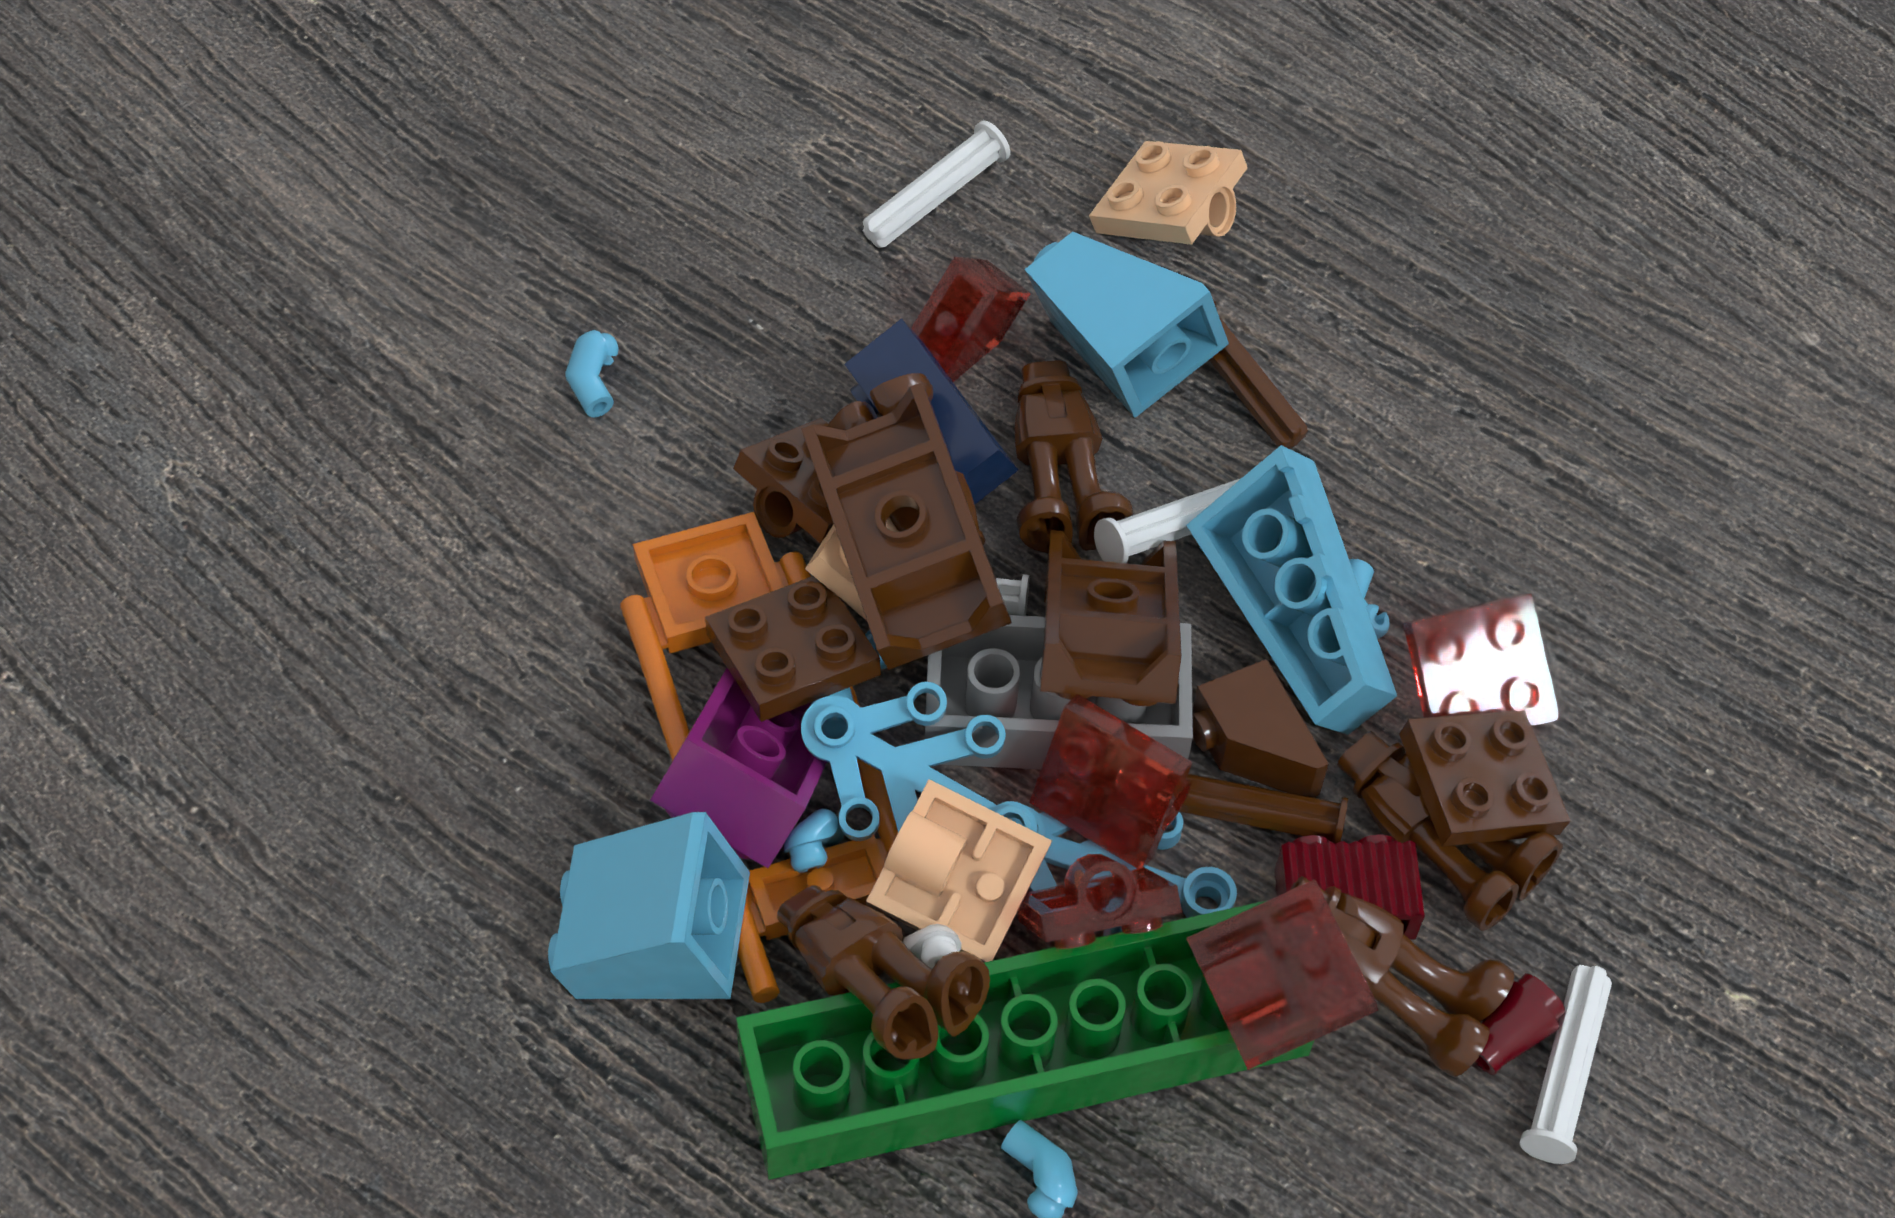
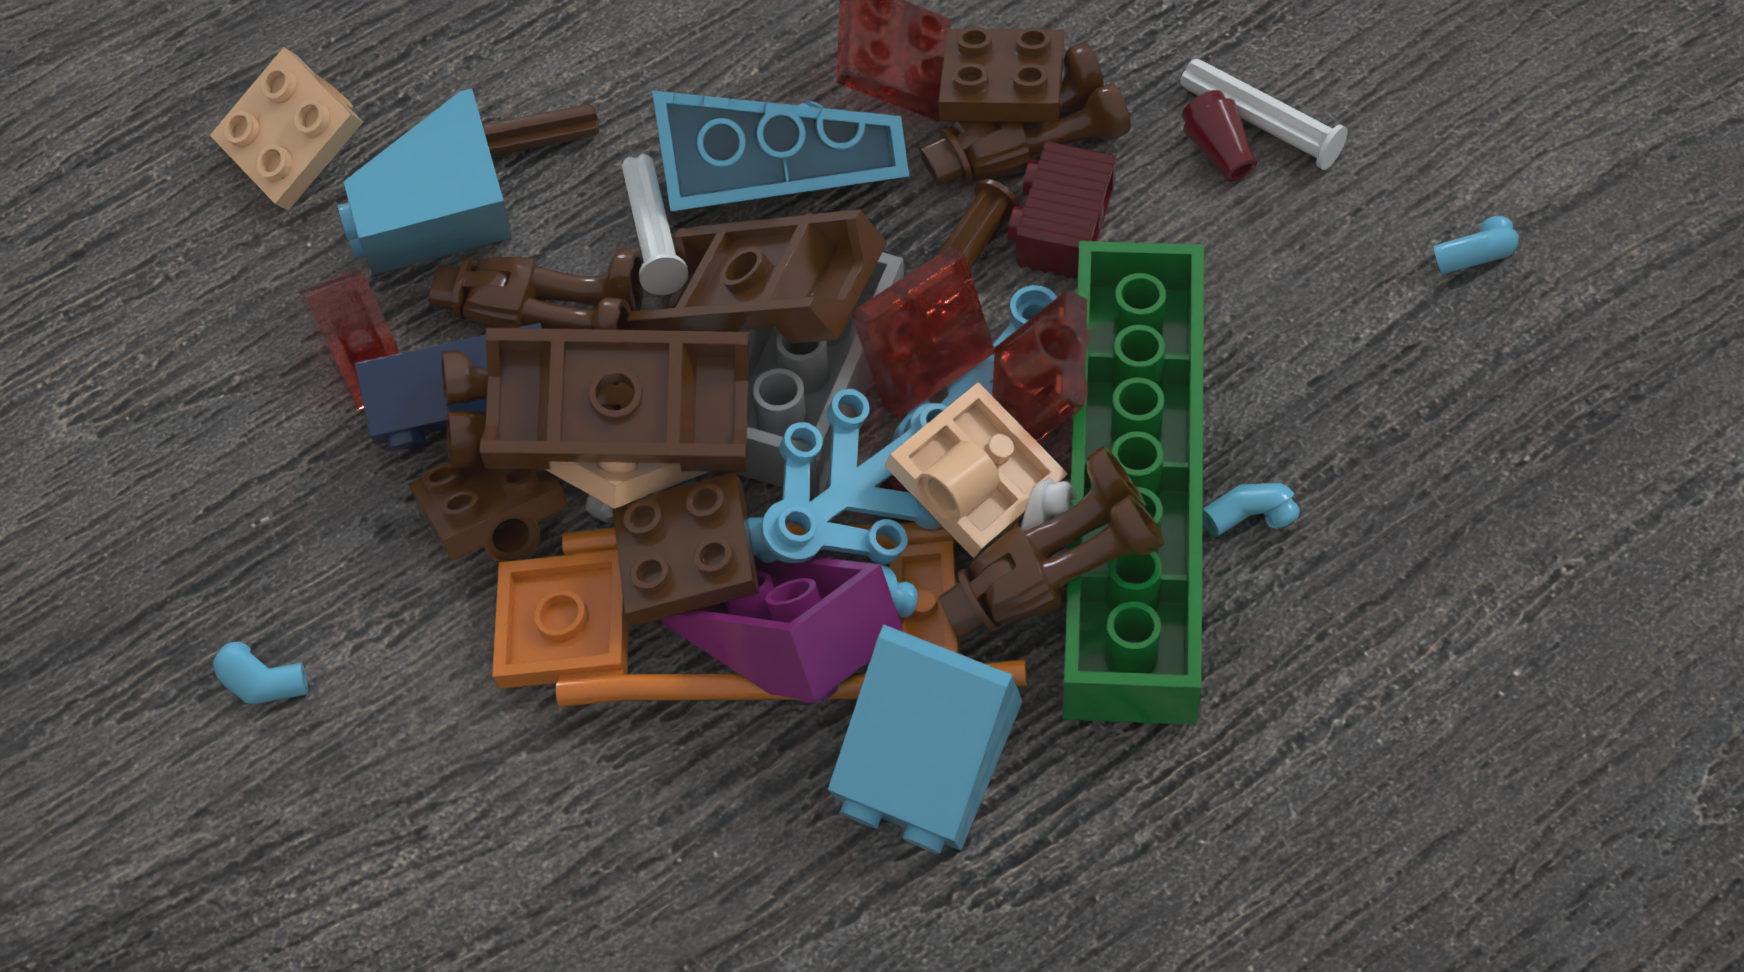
camera: 65 degrees left, 0 degrees up
(936, 184) = (151, 264): white axle -> none
(1257, 731) = (905, 214): reddish brown slope -> none
(1282, 974) = (1168, 245): clear red plate -> none
(1468, 997) = (1141, 199): reddish brown piece -> none

